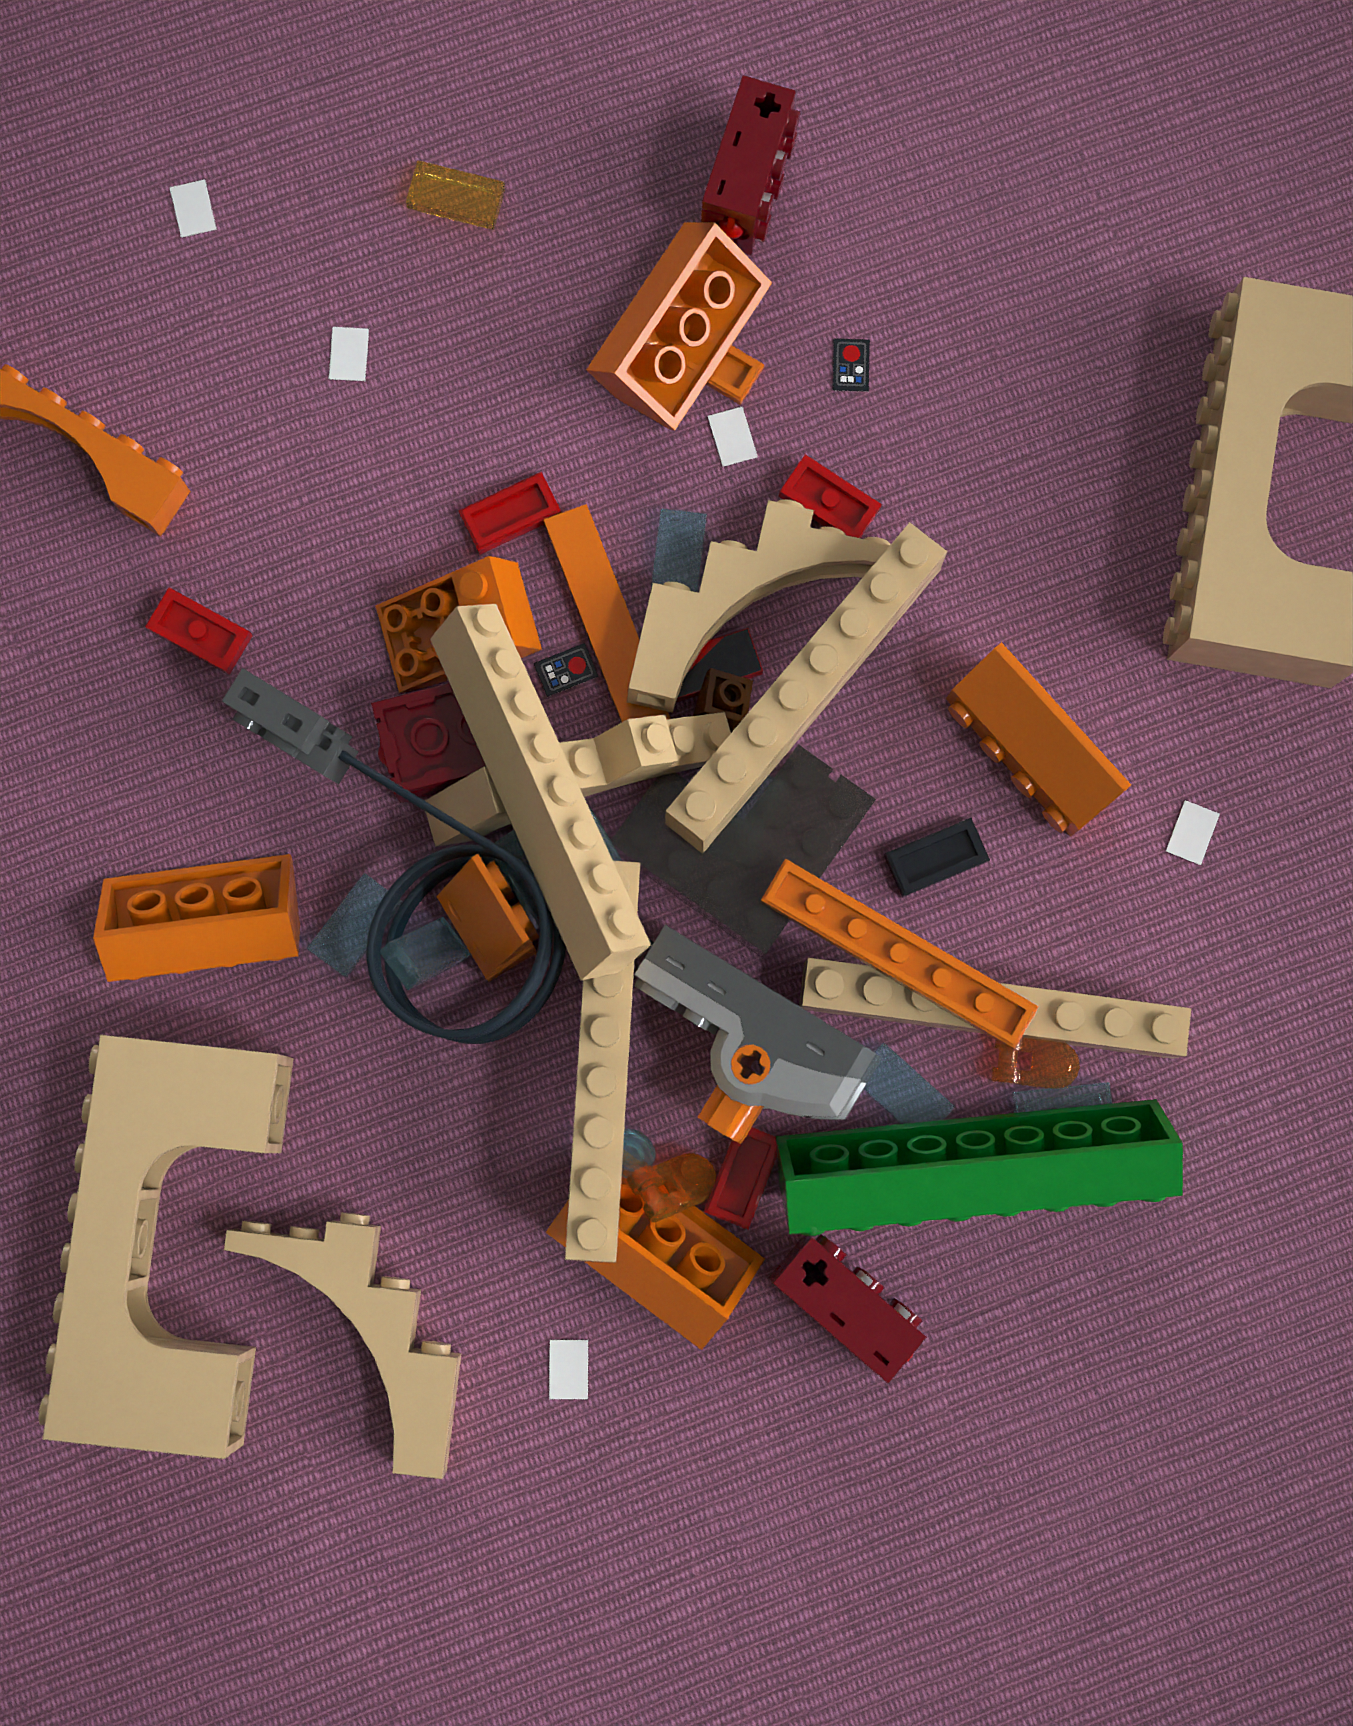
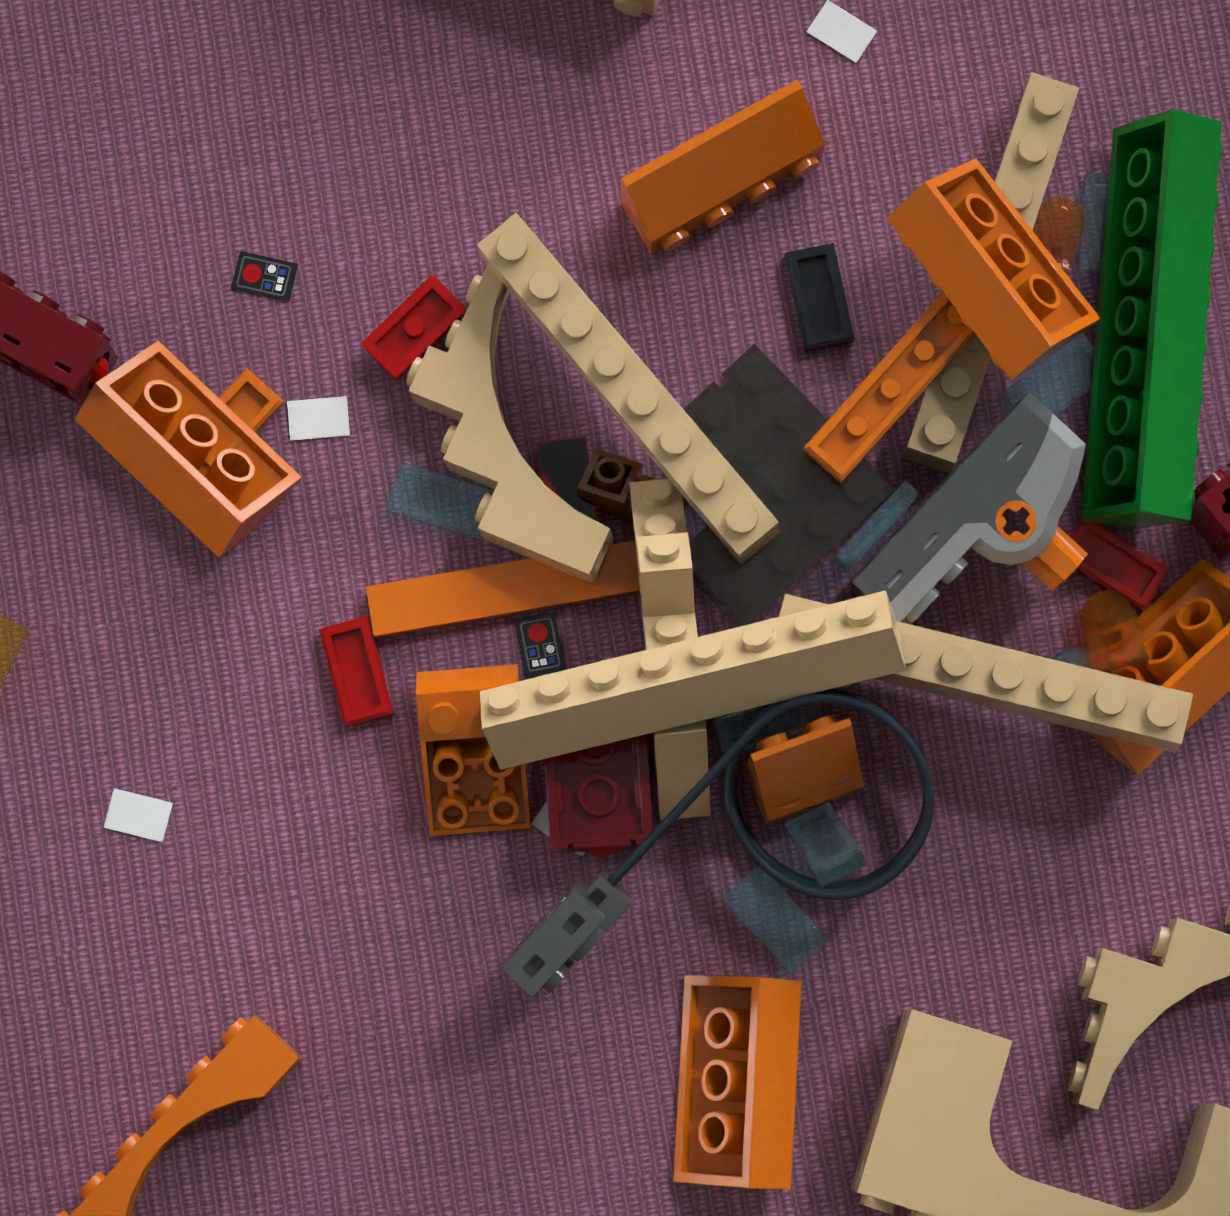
camera: 75 degrees left, 0 degrees up
(199, 631) = (422, 1030): red plate -> none
(731, 947) = (876, 527): none -> clear light blue tile
(990, 999) = (992, 268): none -> orange slope

